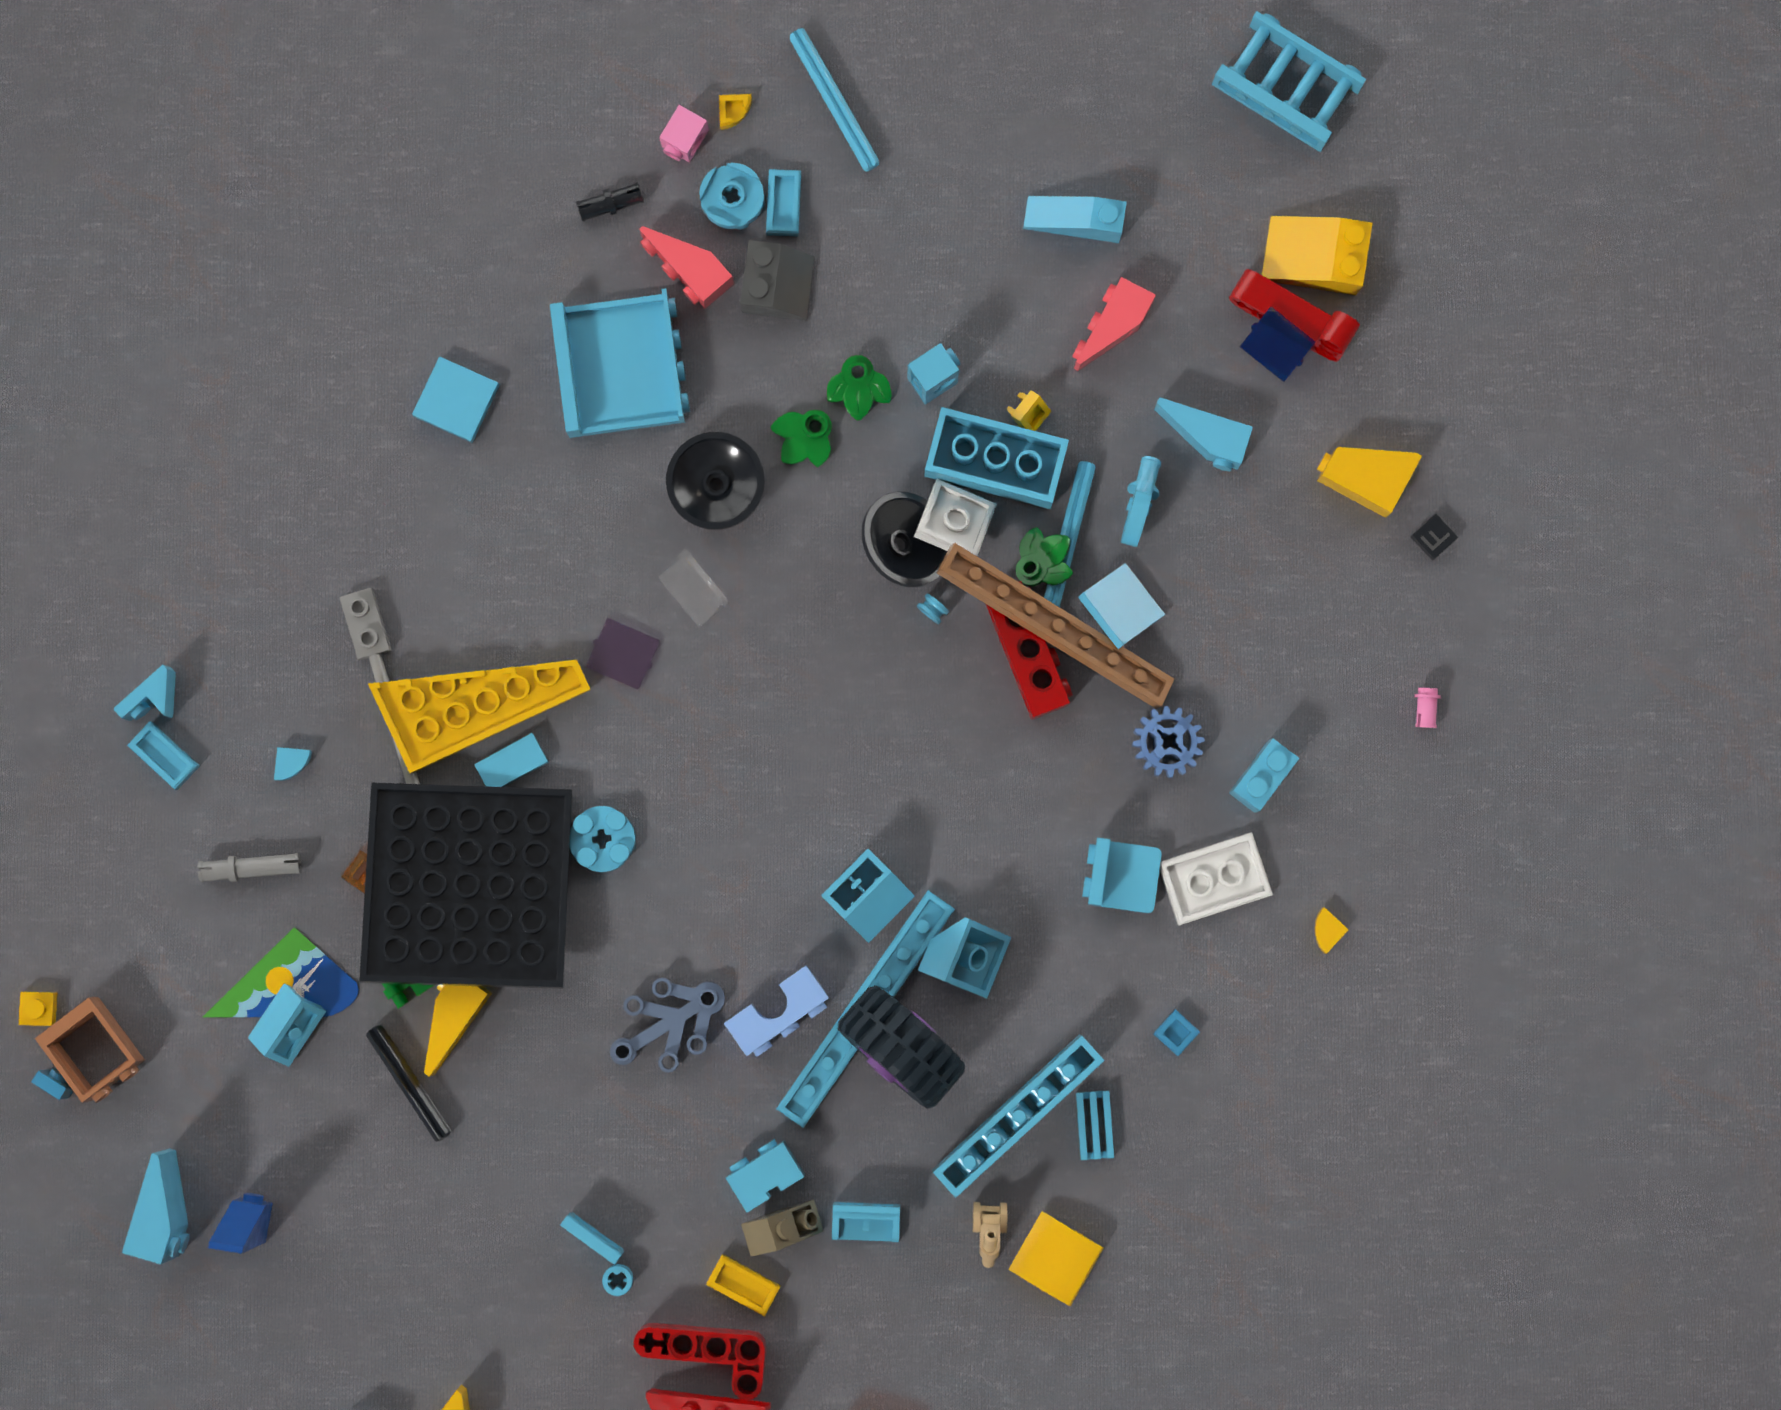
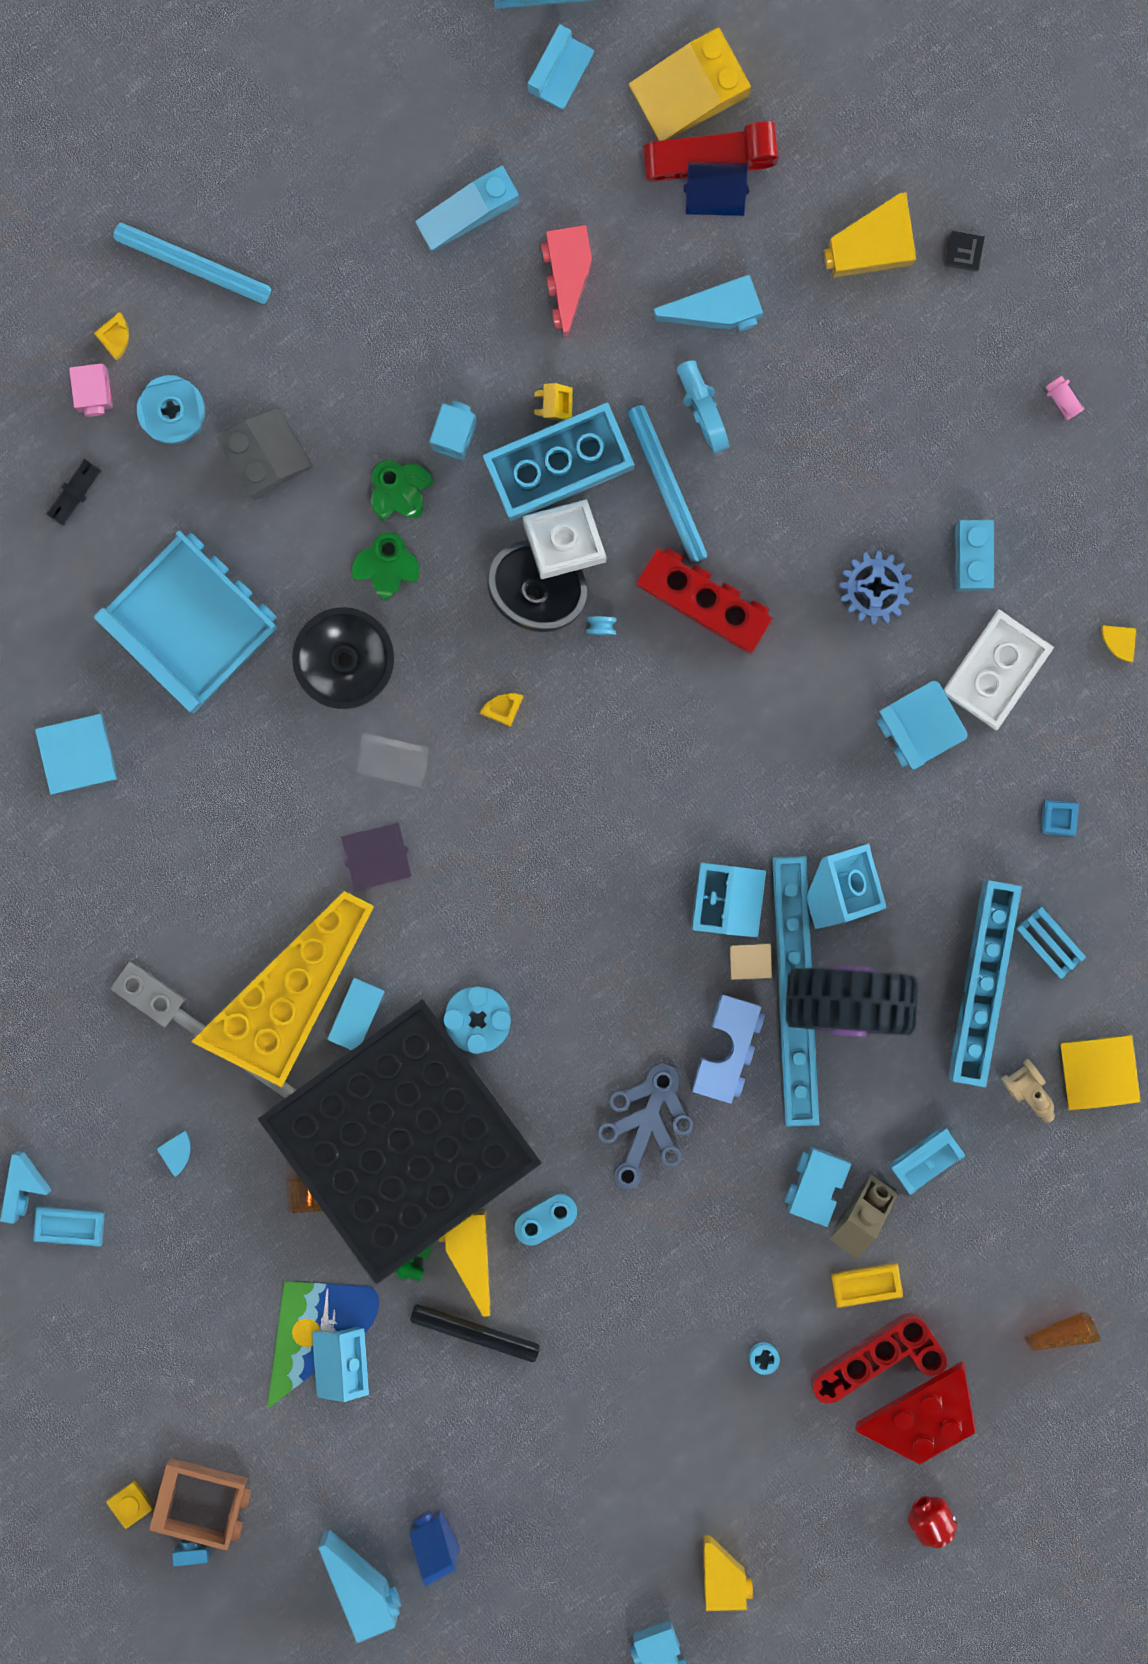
camera: 40 degrees left, 5 degrees up
(249, 867) = (199, 1272): light grey pin -> none
(532, 1036) = (545, 1219): none -> medium azure plate
(592, 1237) = (718, 1341): medium azure tile -> none
(695, 267) = (186, 493): coral slope -> none
(783, 202) = (217, 382): medium azure tile -> none
(808, 614) = (503, 708): none -> yellow tile
(847, 956) = (750, 961): none -> tan panel
(1047, 556) = (660, 510): green plate -> none
(1055, 625) = (713, 564): medium nougat plate -> none
(1121, 605) = (753, 505): medium azure tile -> none
(1226, 165) = (560, 68): none -> medium azure panel

